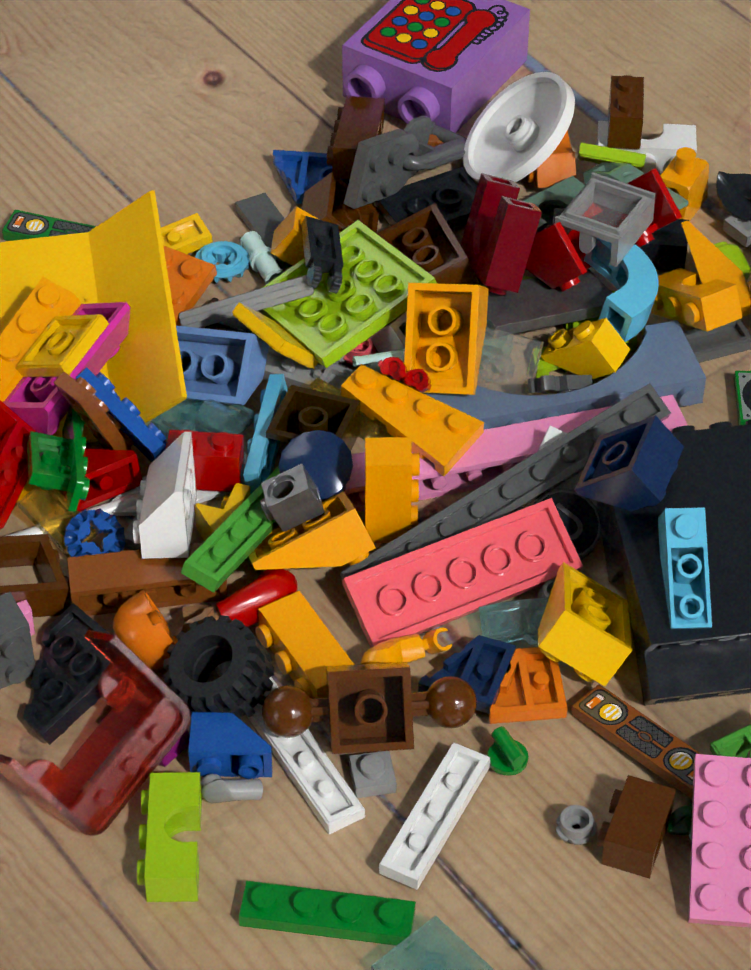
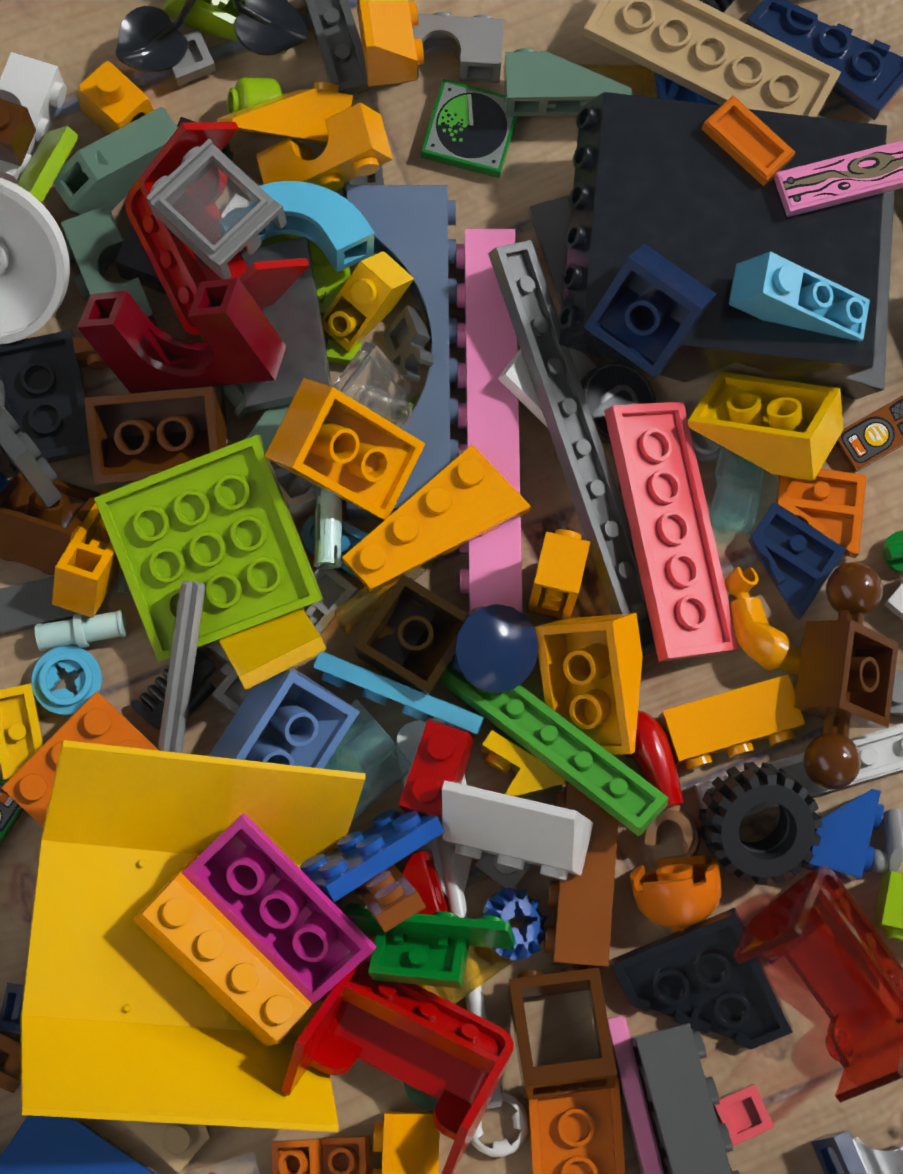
camera: 80 degrees left, 30 degrees up
(62, 345) = (269, 909): yellow tile -> none
(291, 498) = (560, 669): flat silver brick -> none
(322, 253) = (155, 555): black hinge -> none
(397, 369) = (386, 504): red piece -> none

